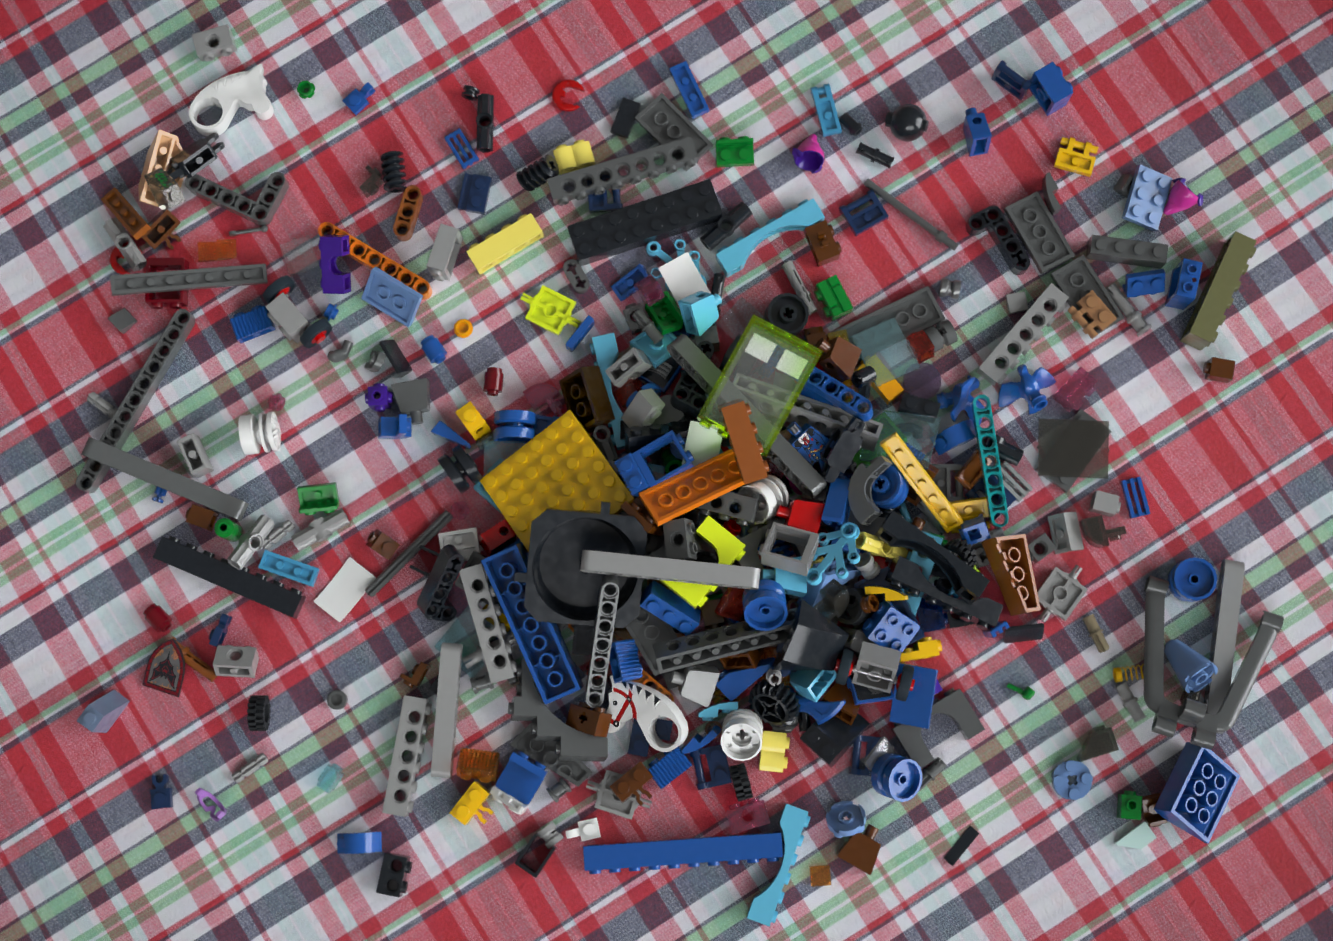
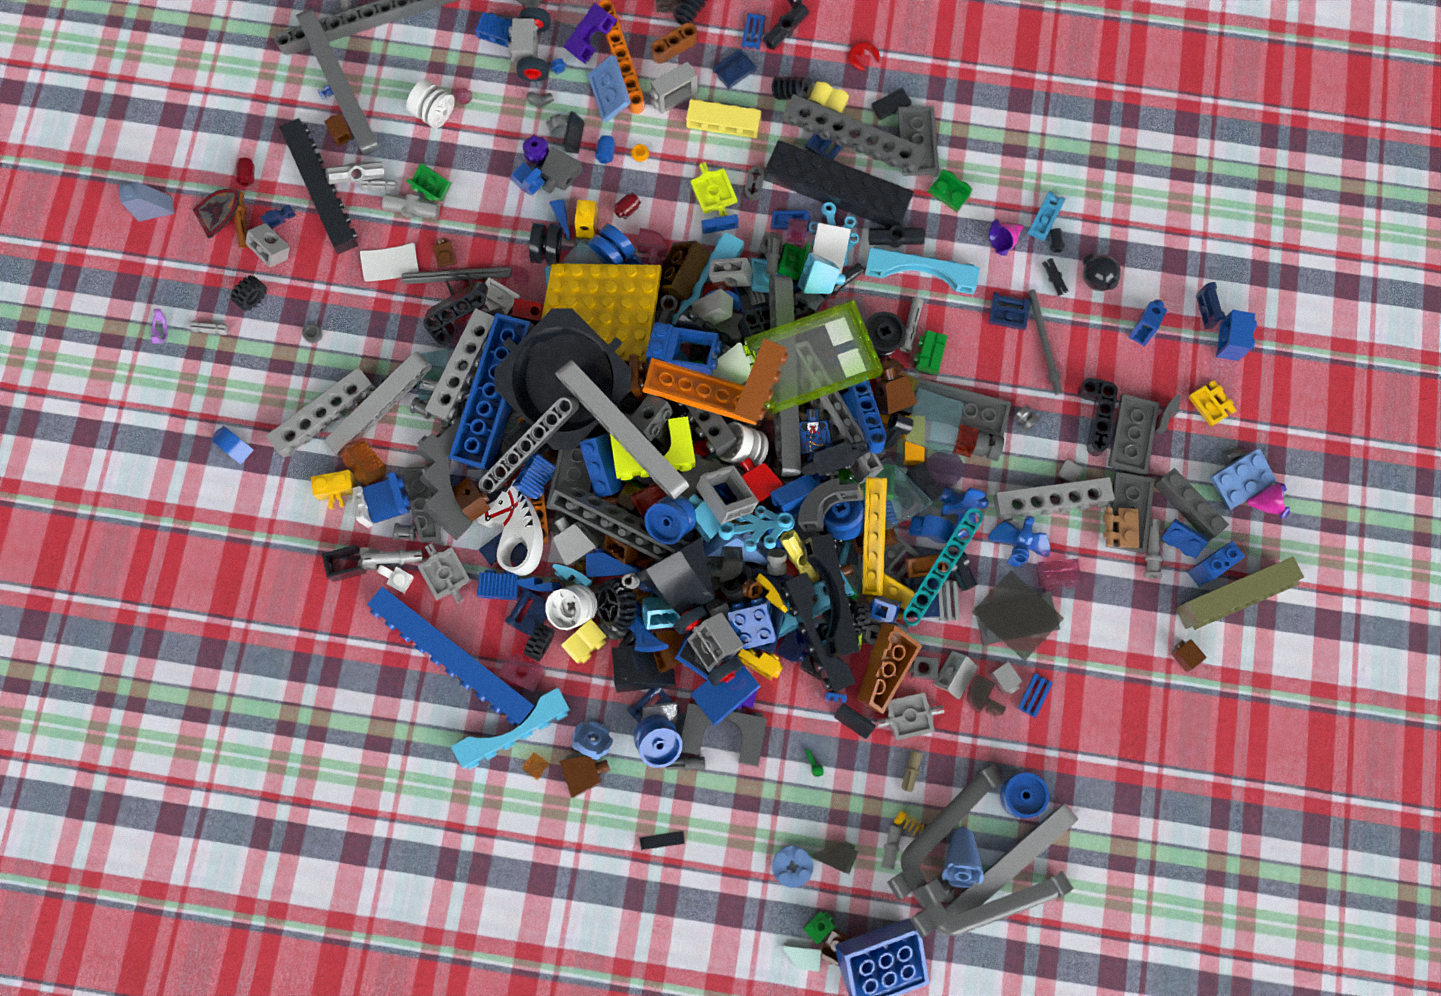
camera: 35 degrees right, 5 degrees down
(161, 796) = (133, 294): dark blue plate -> none
(195, 455) = (373, 83): light grey brick -> none
(228, 530) = (346, 149): green brick -> none
(289, 568) = (364, 214): dark azure plate -> none
(330, 777) = (255, 381): clear light blue brick -> none
(388, 872) = (231, 483): black brick -> none
(419, 672) = (383, 364): reddish brown bracket -> none
(574, 811) = (391, 557): none -> light grey pin
(631, 783) = (458, 570): reddish brown brick -> none
(689, 89) = (956, 120): blue plate -> none
(822, 243) = (957, 306): reddish brown brick -> none

